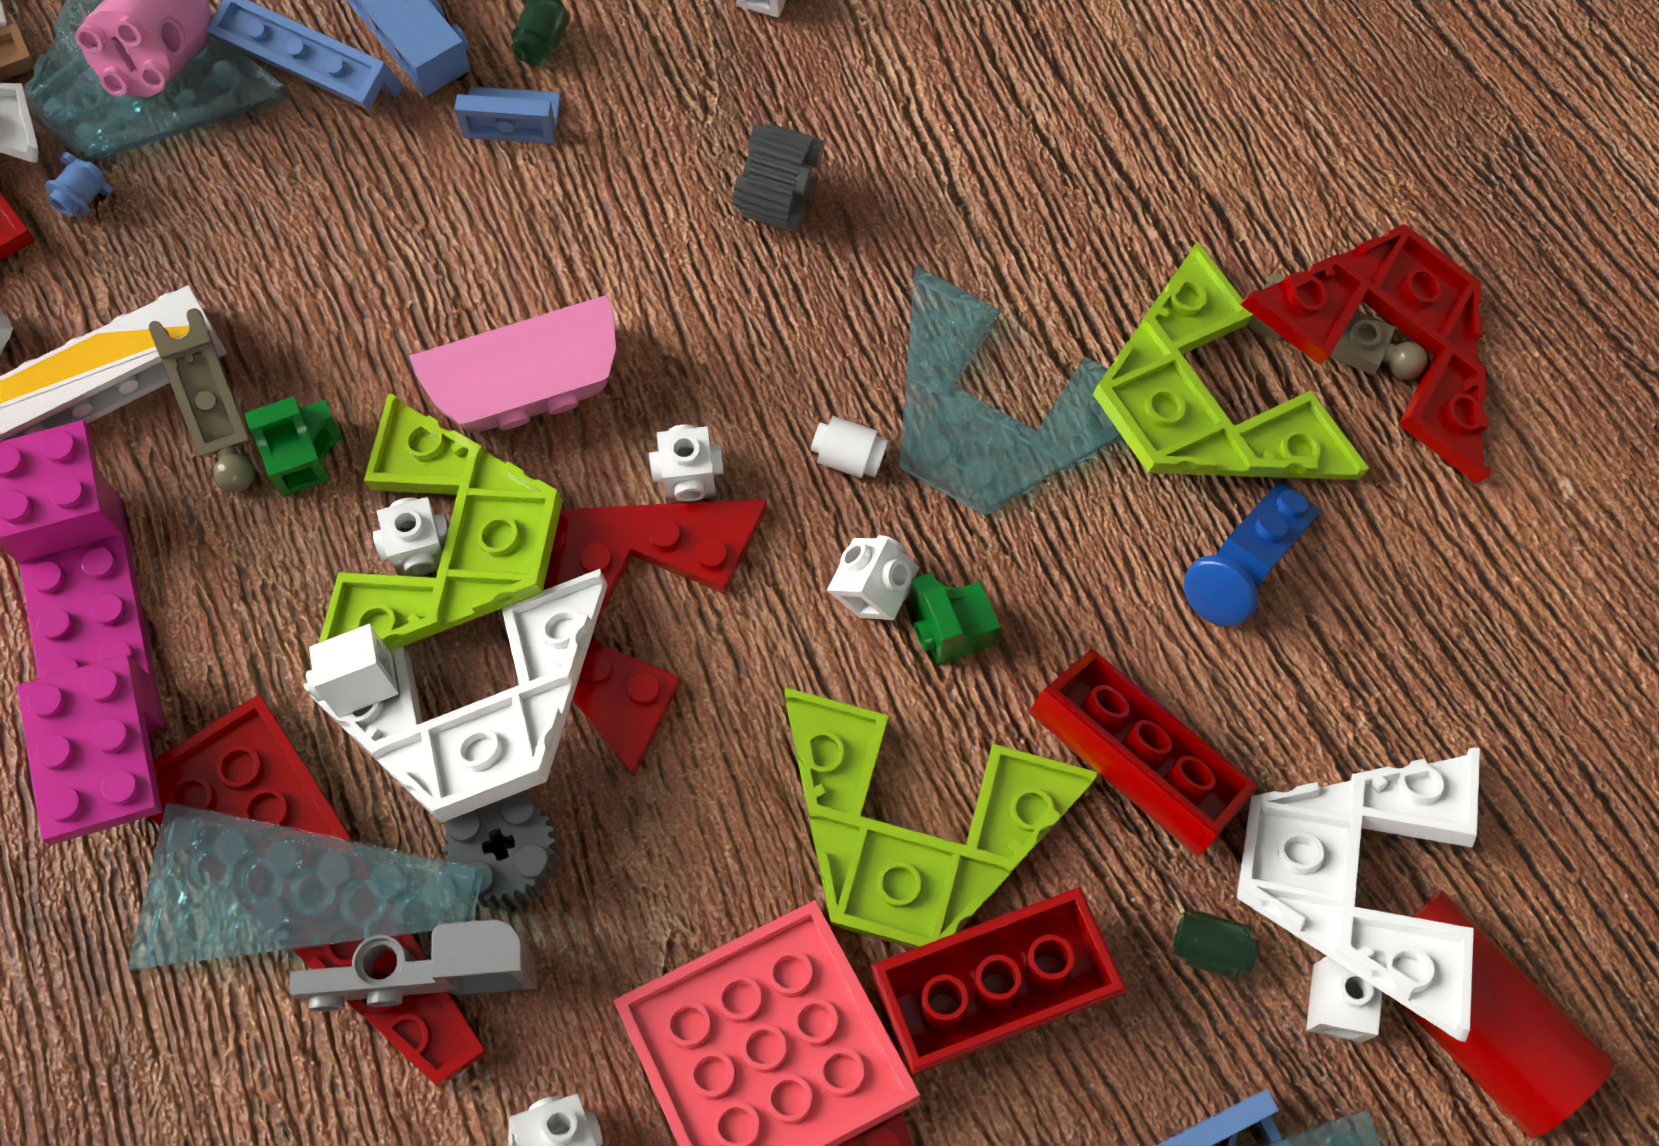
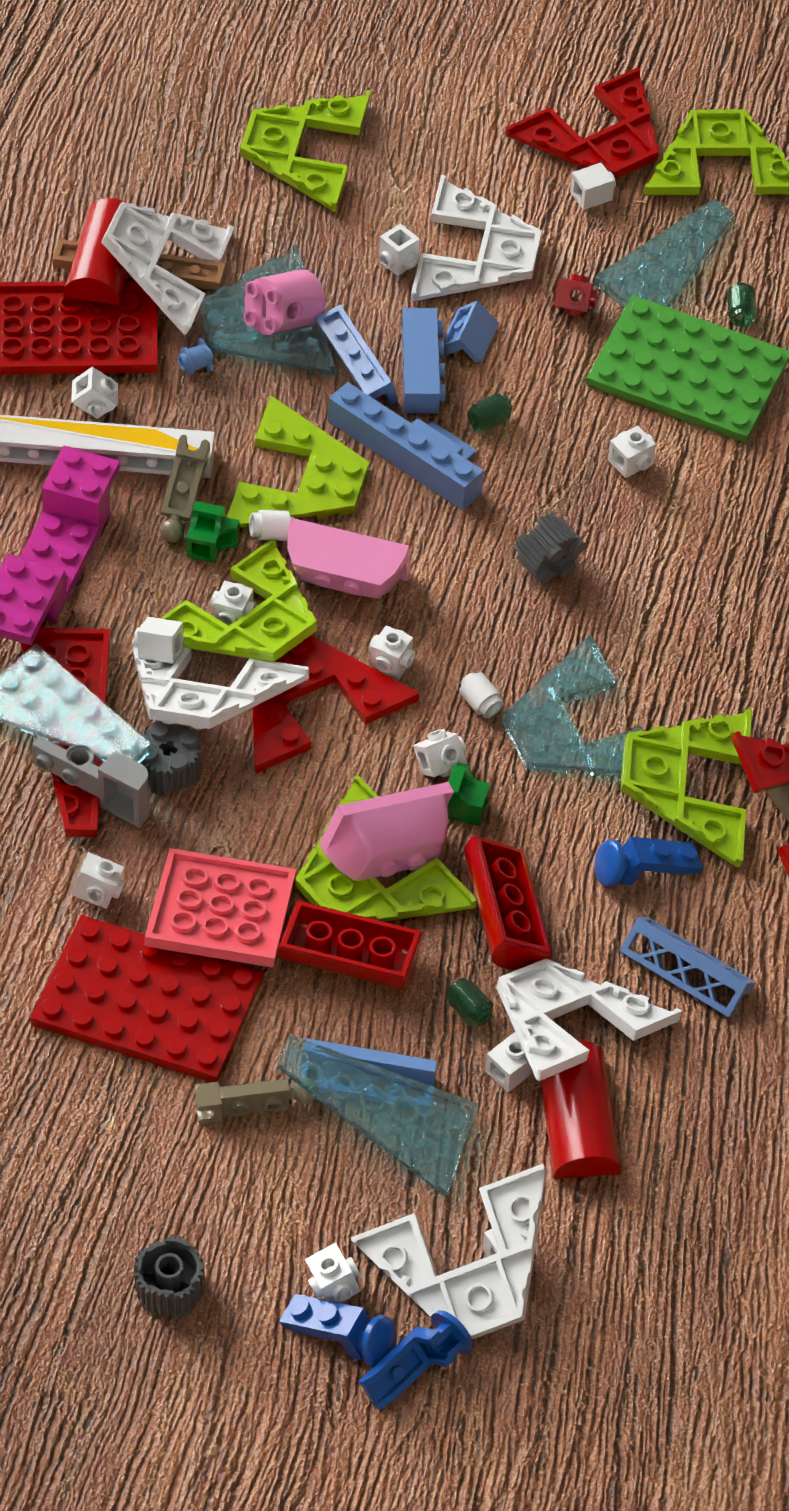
camera: 35 degrees right, 15 degrees down
(373, 375) = (270, 525): none -> white brick
(399, 256) = (330, 480): none -> lime wing
(465, 143) = (405, 446): none -> medium blue brick
(922, 766) = (388, 832): none -> bright pink windscreen
(1433, 654) = (692, 954): none -> medium blue fence

